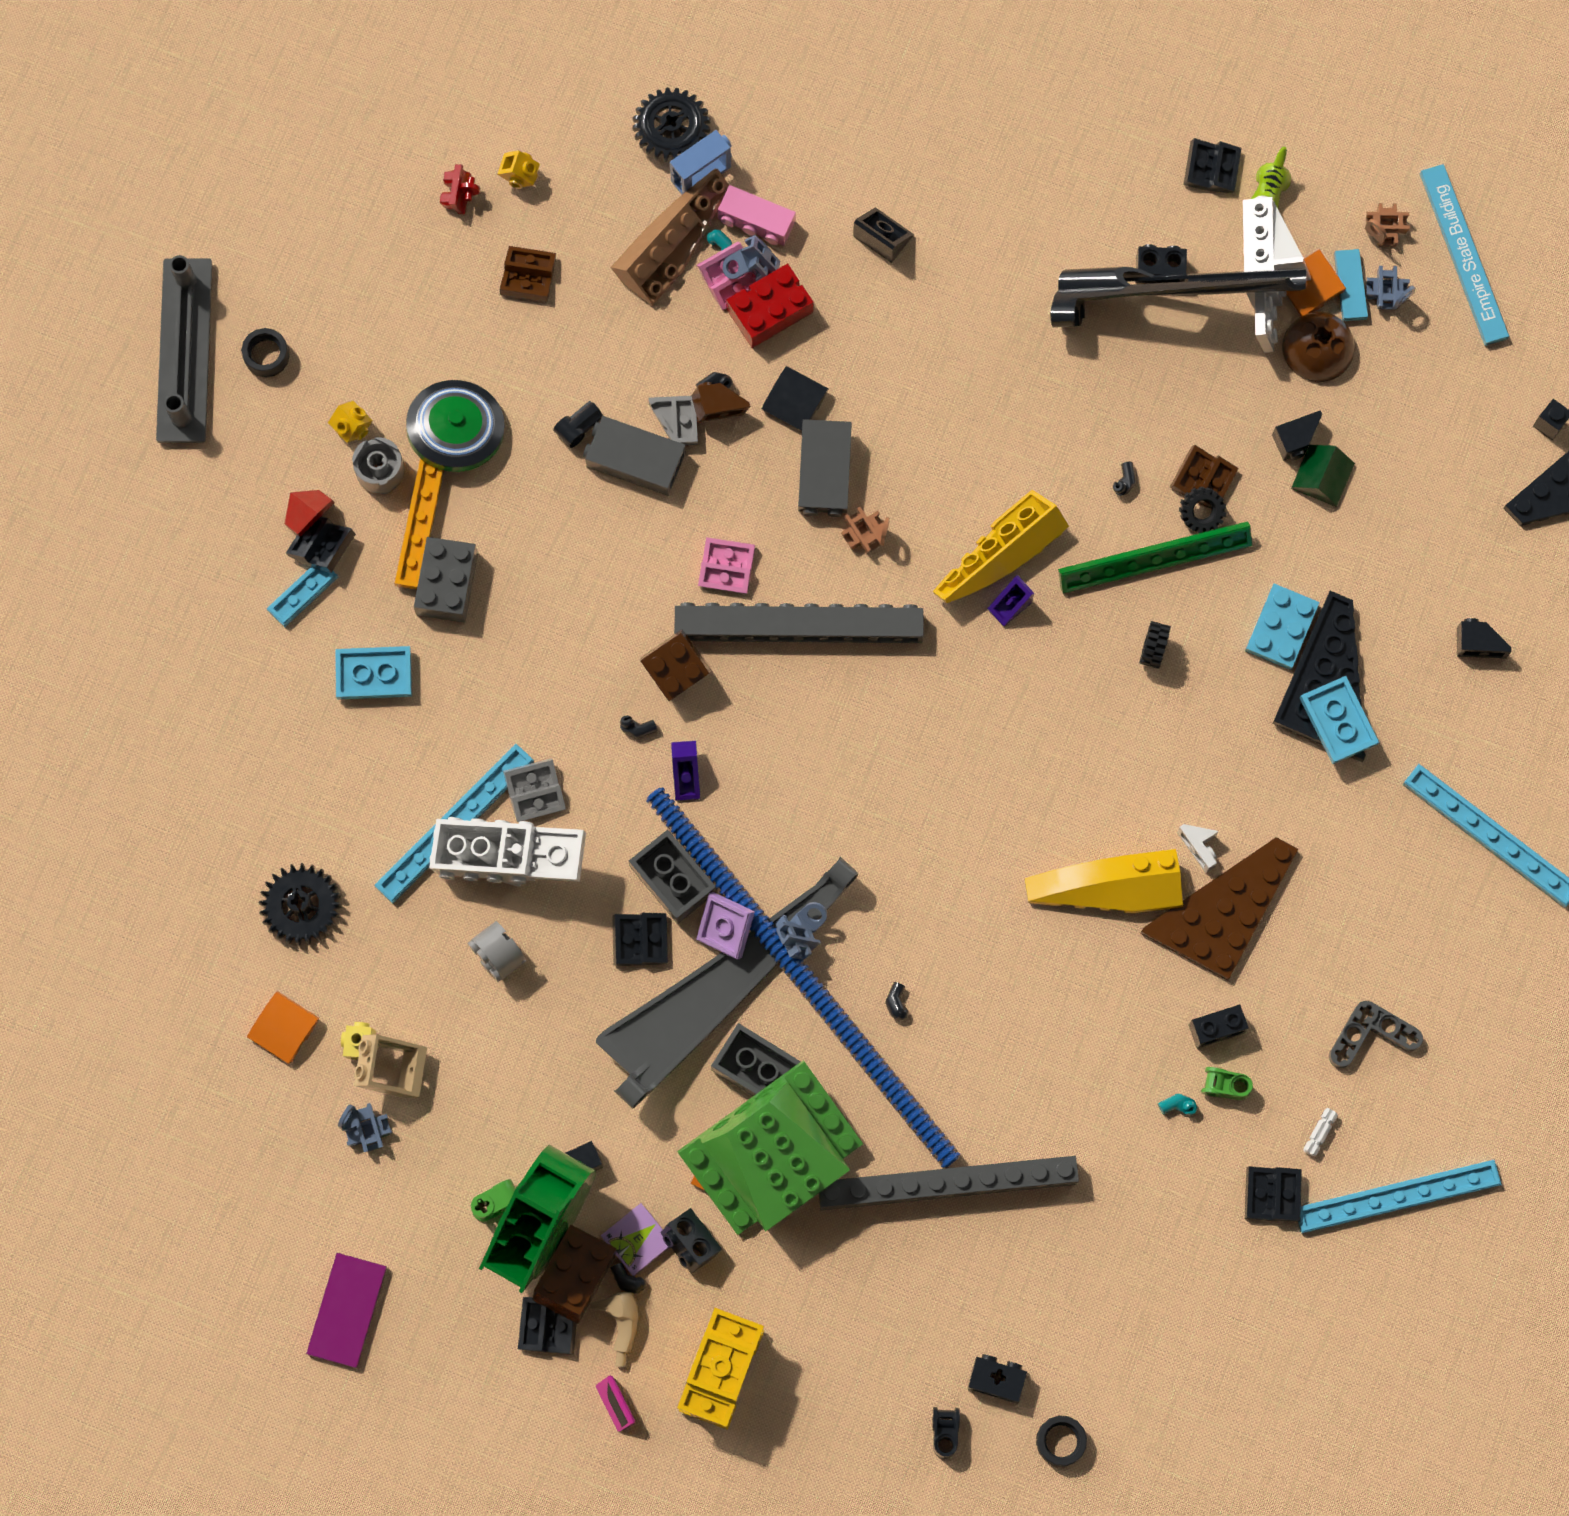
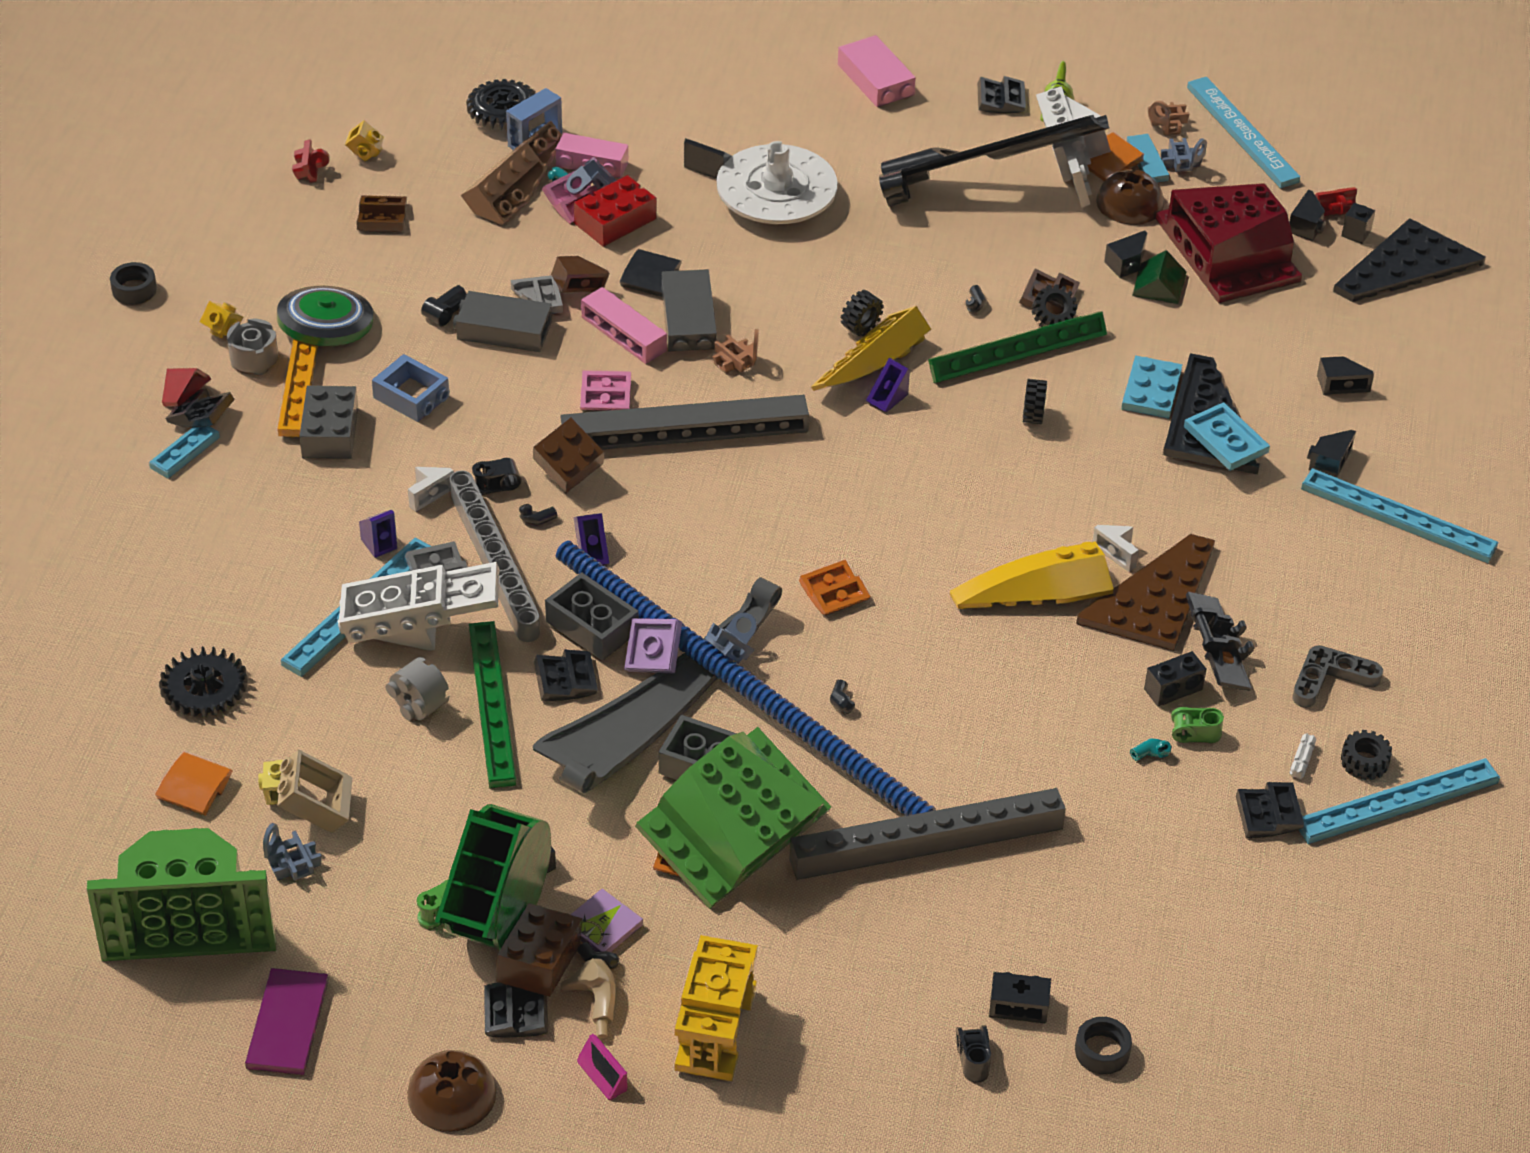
camera: 10 degrees left, 30 degrees down
(184, 350) = (52, 286): dark grey piece -> none
(260, 1187) = (181, 899): none -> bright green wedge
(373, 672) = (262, 498): medium azure plate -> none
(480, 737) = (379, 533): none -> dark purple slope
(499, 1412) = (451, 1091): none -> reddish brown piece
(515, 523) = (387, 382): none -> medium blue window
(542, 676) = (429, 486): none -> white slope
(566, 972) = (492, 705): none -> green tile
(585, 767) = (492, 548): none -> light grey beam
(606, 673) = (496, 475): none -> black piece
(696, 1238) = (662, 910): black brick -> none
(757, 476) = (624, 325): none -> bright pink brick
(913, 861) = (834, 587): none -> orange slope
(932, 264) = (777, 183): none -> white piece
(1001, 495) = (862, 312): none -> black tyre
(1082, 115) = (876, 71): none -> bright pink brick
(1161, 257) = (977, 165): black brick -> none
(1277, 977) = (1221, 641): none -> black piece
(1391, 1129) = (1367, 743): none -> black tyre
(1411, 429) = (1232, 238): none -> dark red wedge
(1442, 748) = (1331, 452): none -> black slope
(1501, 402) = (1308, 217): none -> black slope
(1537, 383) = (1337, 201): none -> red hips

